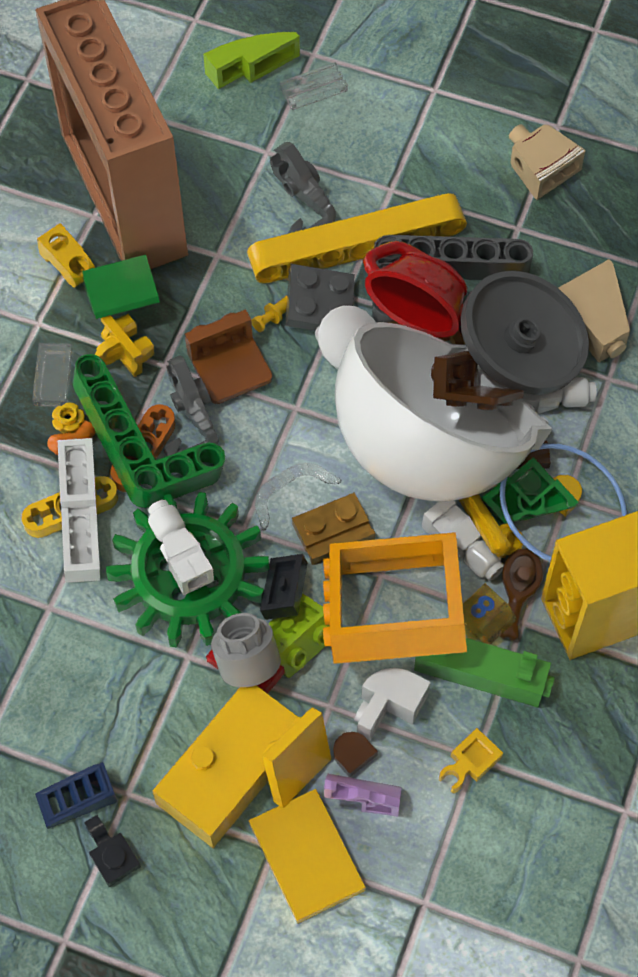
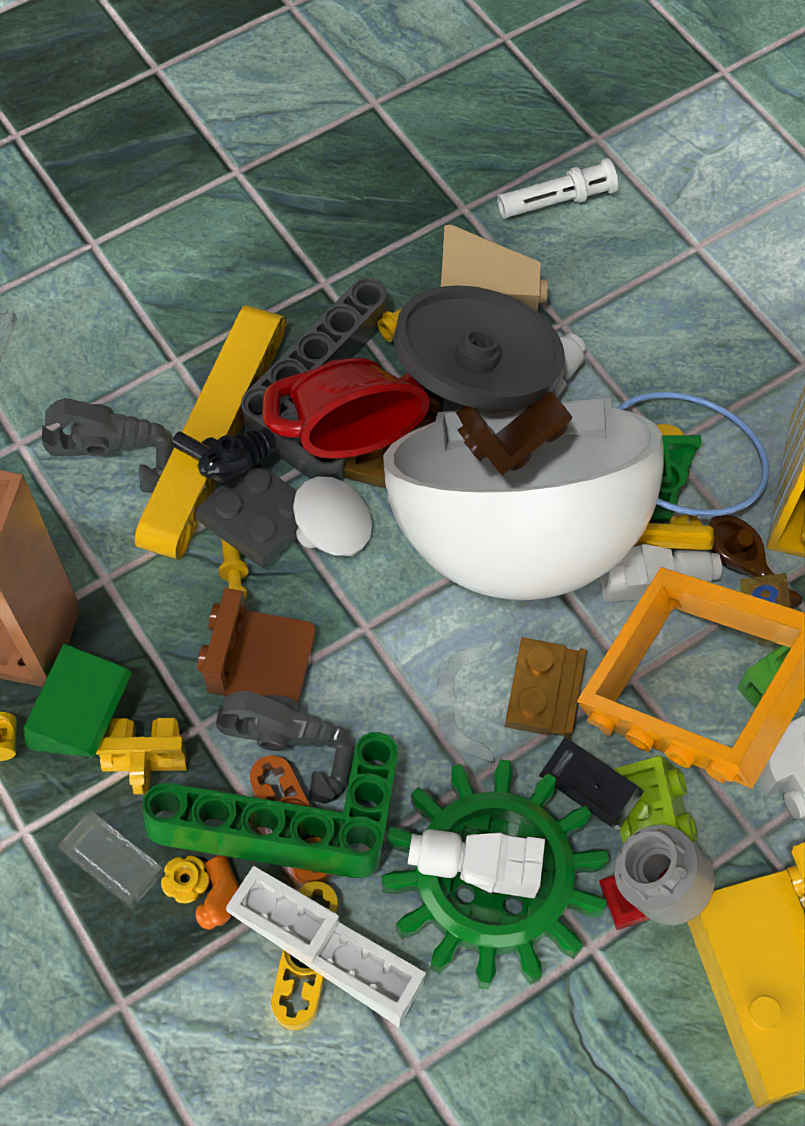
camera: 55 degrees left, 0 degrees up
(334, 253) = (229, 454): none -> black piece
(544, 158) = (268, 204): tan torso -> none

